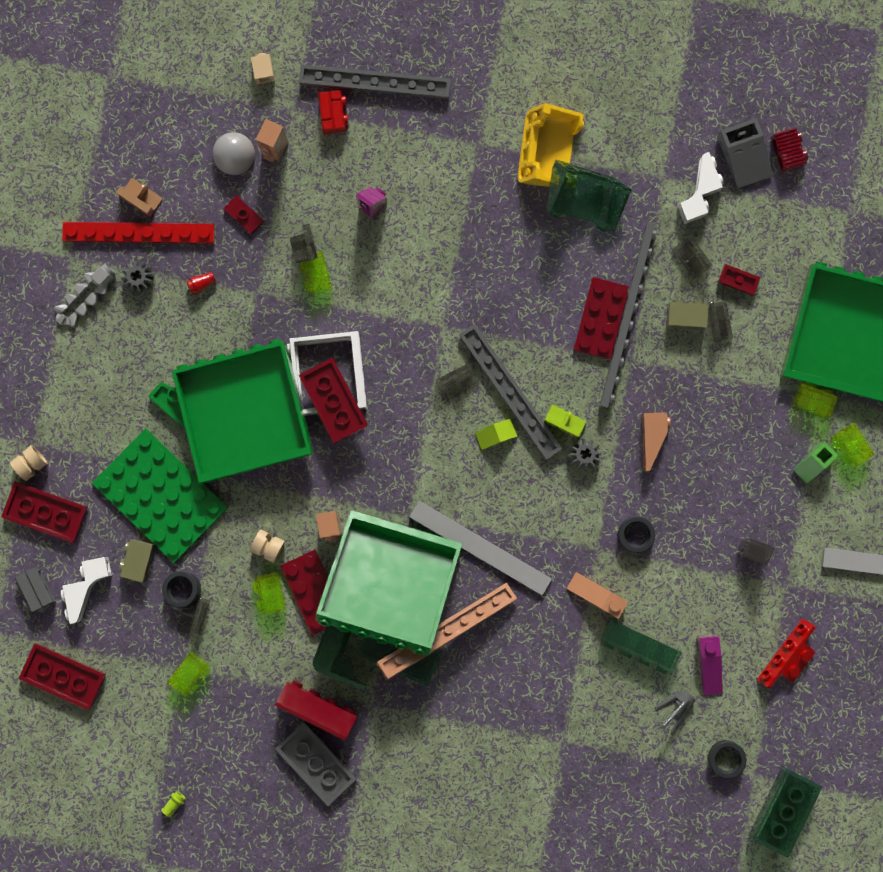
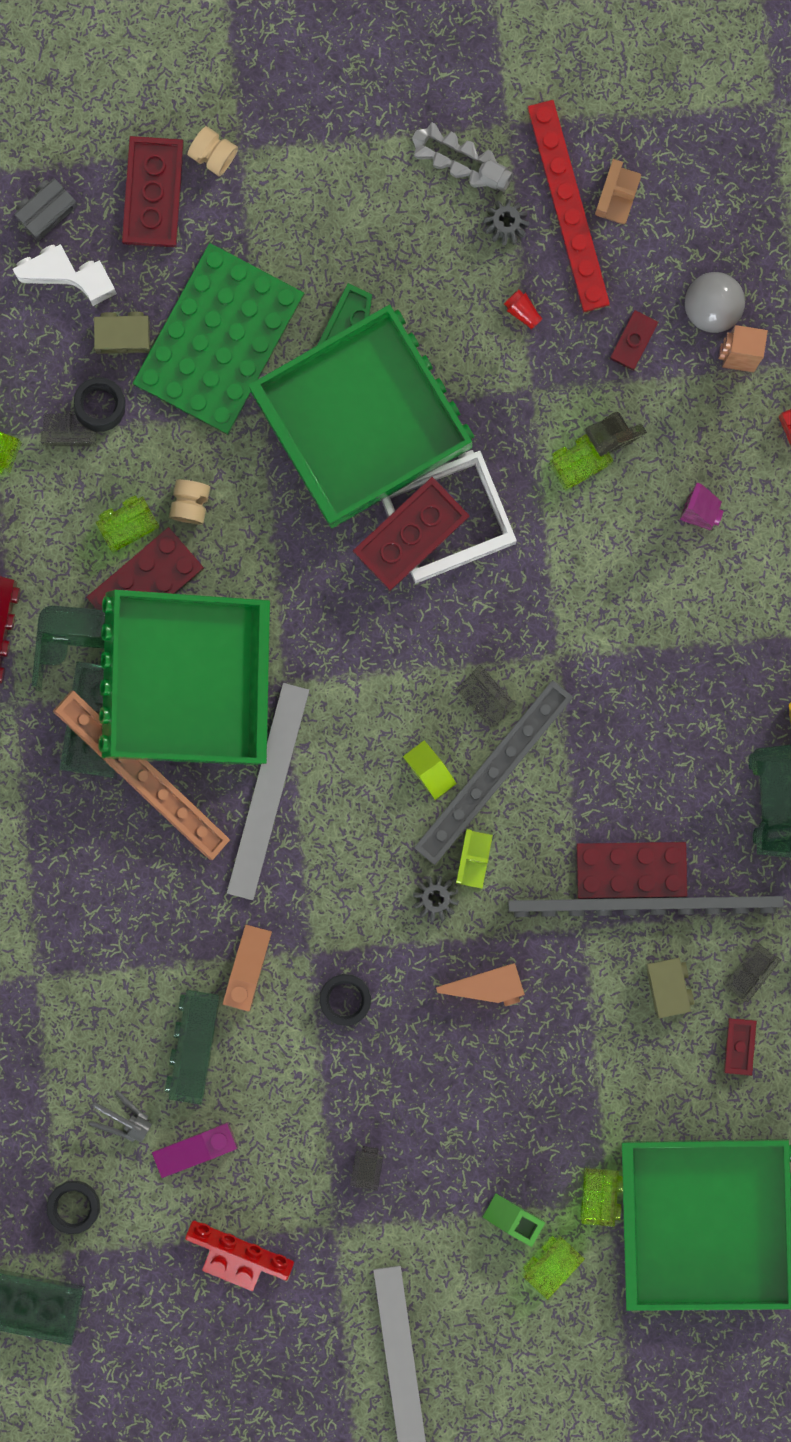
camera: 70 degrees right, 0 degrees up
(329, 525) = (239, 576): nougat brick -> none
(719, 321) = (674, 1036): clear smoke panel -> none

